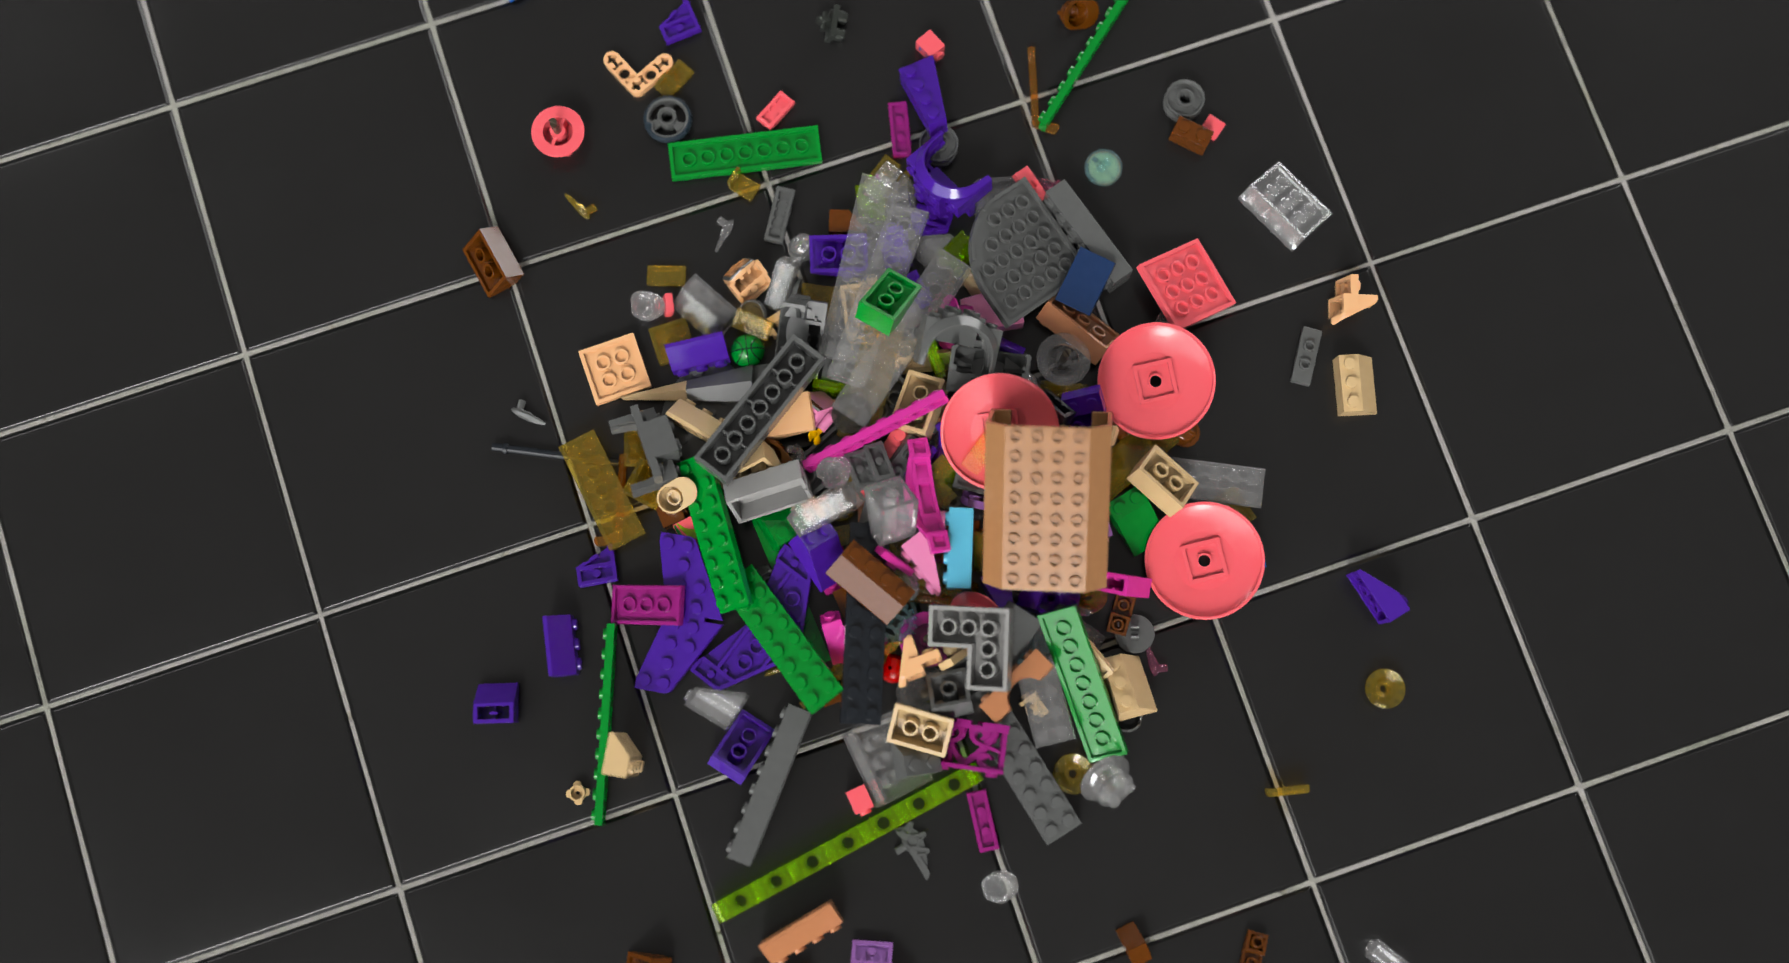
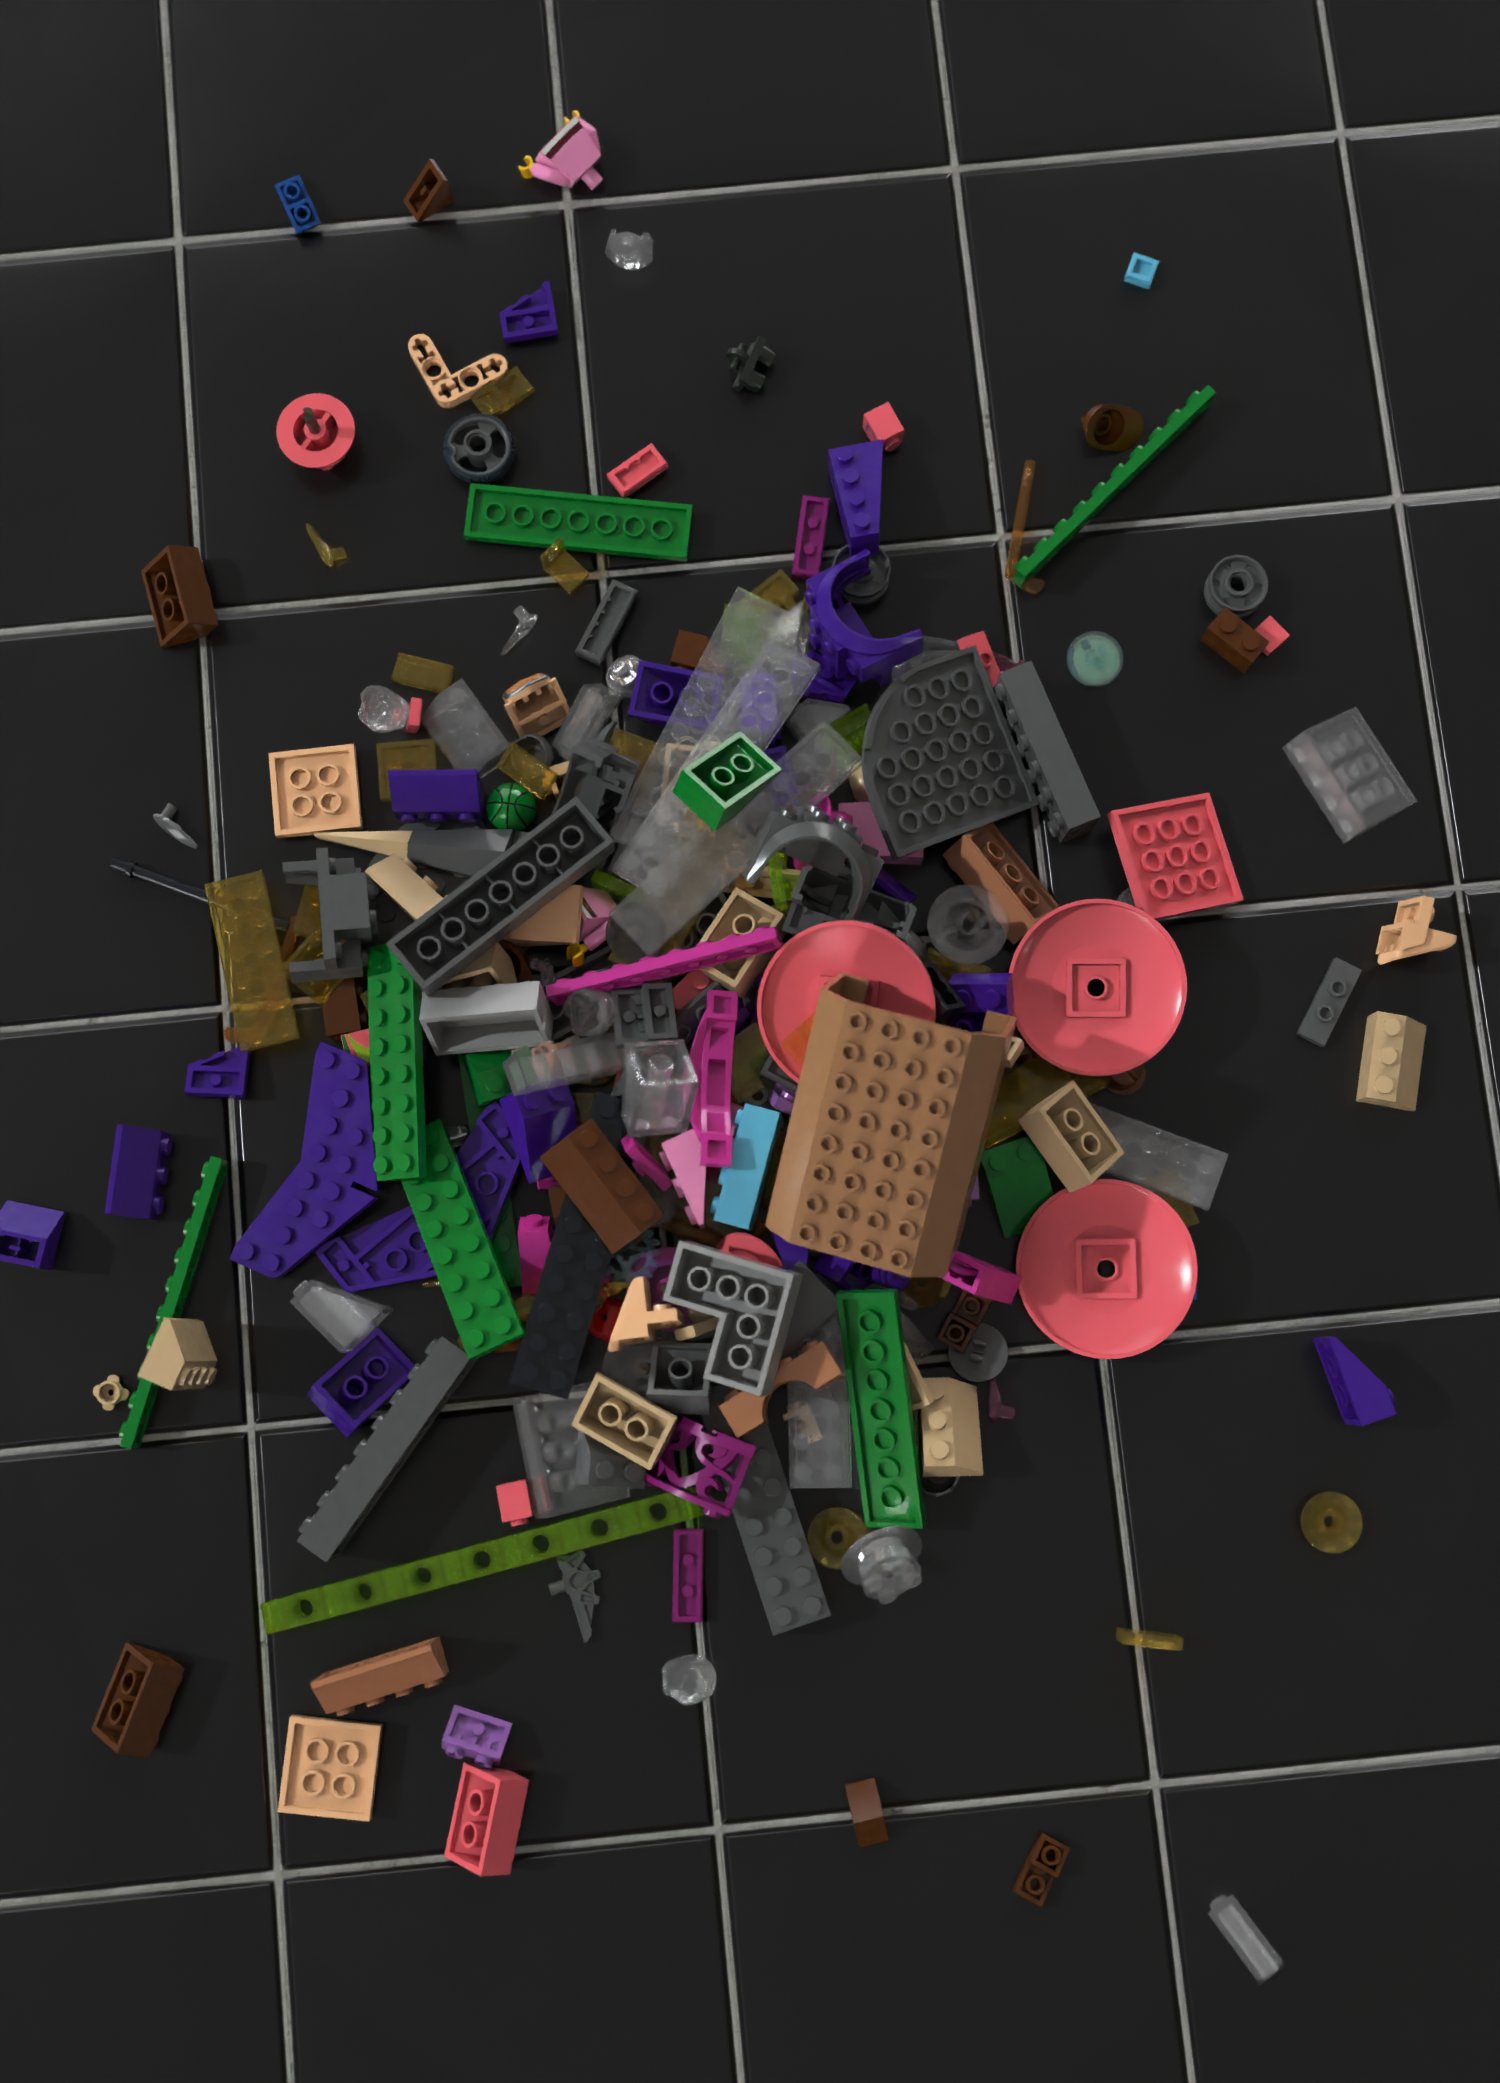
camera: 15 degrees right, 0 degrees up
(648, 604) = (276, 1143): magenta tile -> none
(677, 495) = (354, 993): tan cap -> none
(882, 182) = (762, 606): clear slope -> none
(1085, 281) = (1026, 817): dark blue tile -> none

